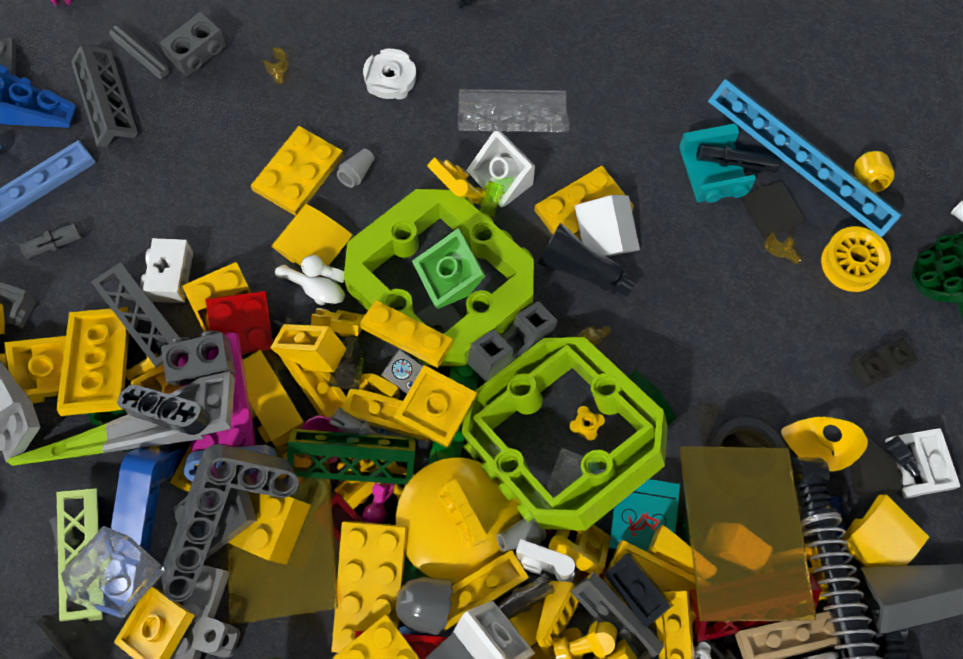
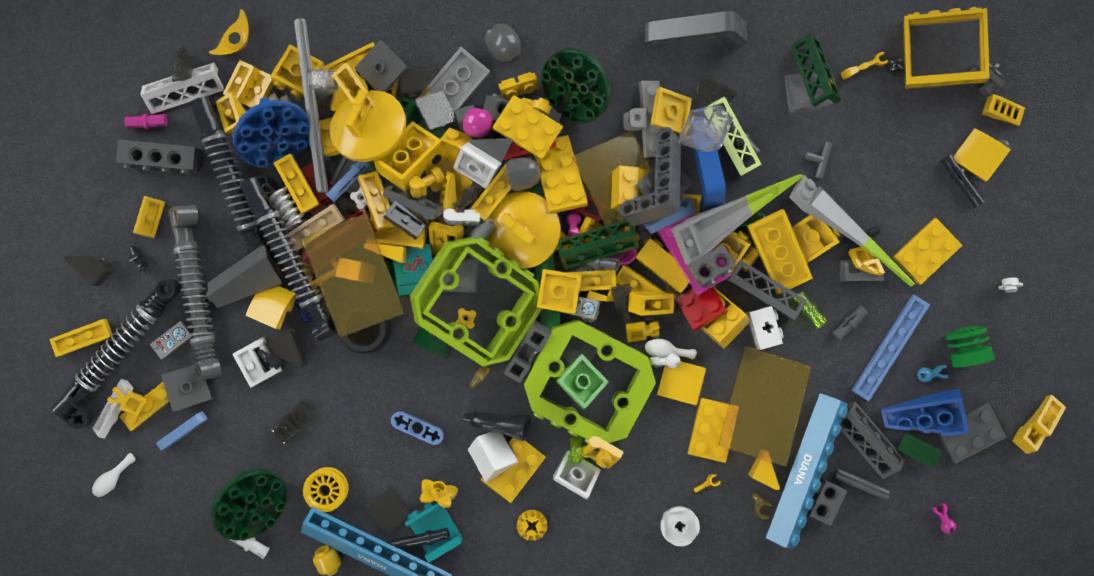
camera: 160 degrees right, 20 degrees up
(47, 64) = (920, 450): none -> dark green slope
(93, 269) = (810, 310): none -> clear neon green pin
(162, 409) = (718, 226): black beam -> none
(196, 83) = (807, 471): none -> brick
(214, 174) = (765, 406): none -> clear yellow piece
(254, 101) = (764, 473): none -> yellow slope
(277, 446) = (643, 233): none -> black piece
(330, 112) = (707, 483): none -> yellow hand
(355, 168) = (674, 443): light grey cone -> none
(406, 333) = (592, 329): yellow plate -> none
(512, 110) = (585, 527): clear fence -> none
(578, 142) = (522, 525): none -> yellow gear
(698, 204) = (437, 492): none -> yellow animal
(724, 304) = (428, 438): none -> medium blue beam
(782, 250) = (375, 481): clear yellow piece -> none
(808, 440) = (326, 351): yellow piece -> none

